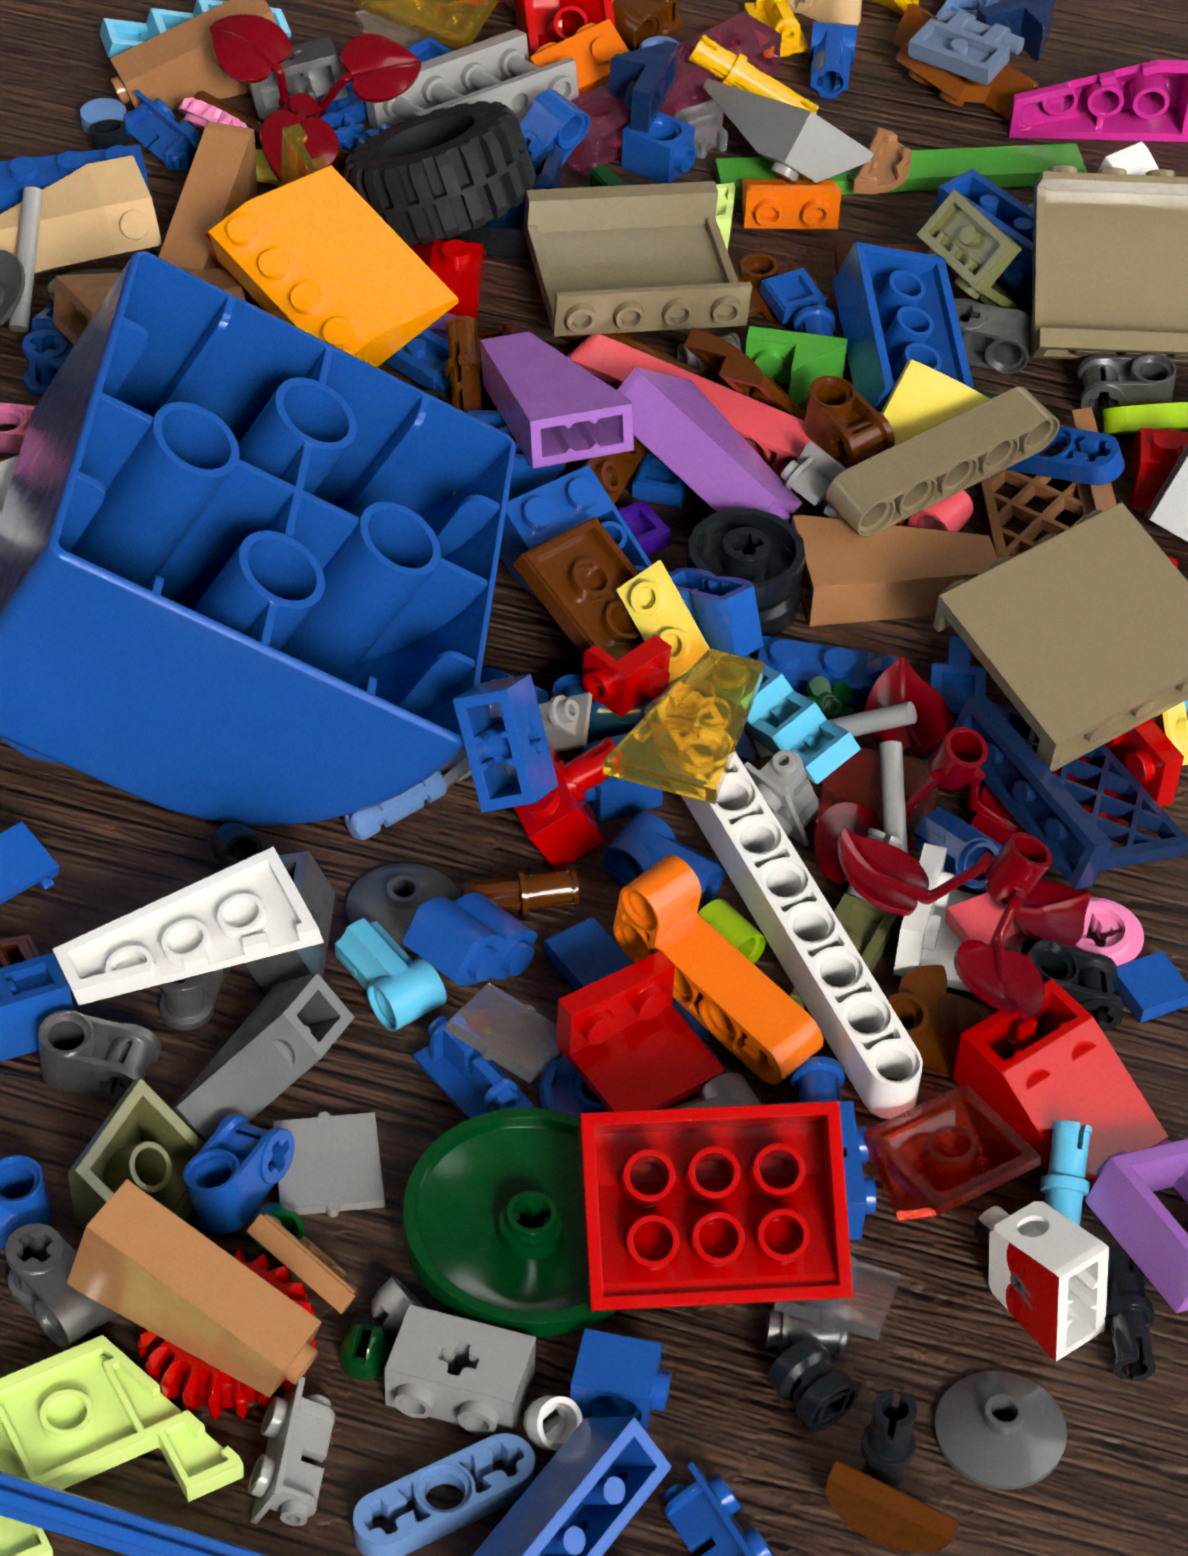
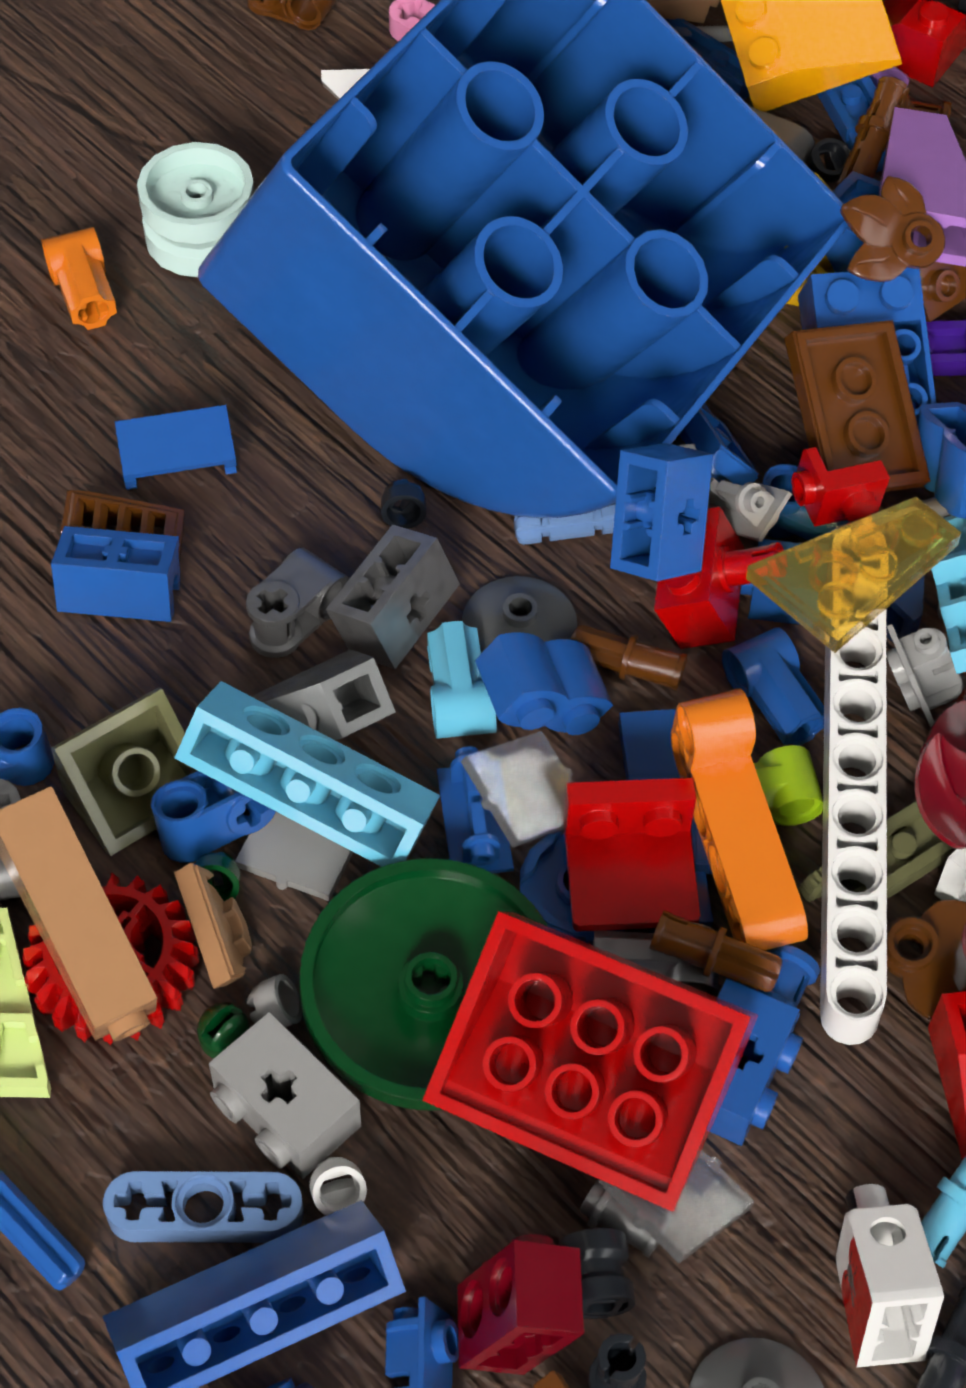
camera: 30 degrees right, 10 degrees up
(94, 1054) = (171, 653): flat silver piece -> none
(205, 927) = (305, 572): white wing -> none
(279, 1477) = (78, 1120): light grey hinge -> none
(317, 1098) = (306, 776): none -> medium azure brick
(549, 437) = (886, 231): none -> reddish brown plate
(619, 1377) = (417, 1177): blue brick -> none
(661, 611) = (904, 447): light yellow hinge -> none
(759, 1084) = (716, 952): none -> reddish brown axle
(777, 1428) = (520, 1306): none -> dark red brick
(946, 1154) = (863, 1107): clear red slope -> none

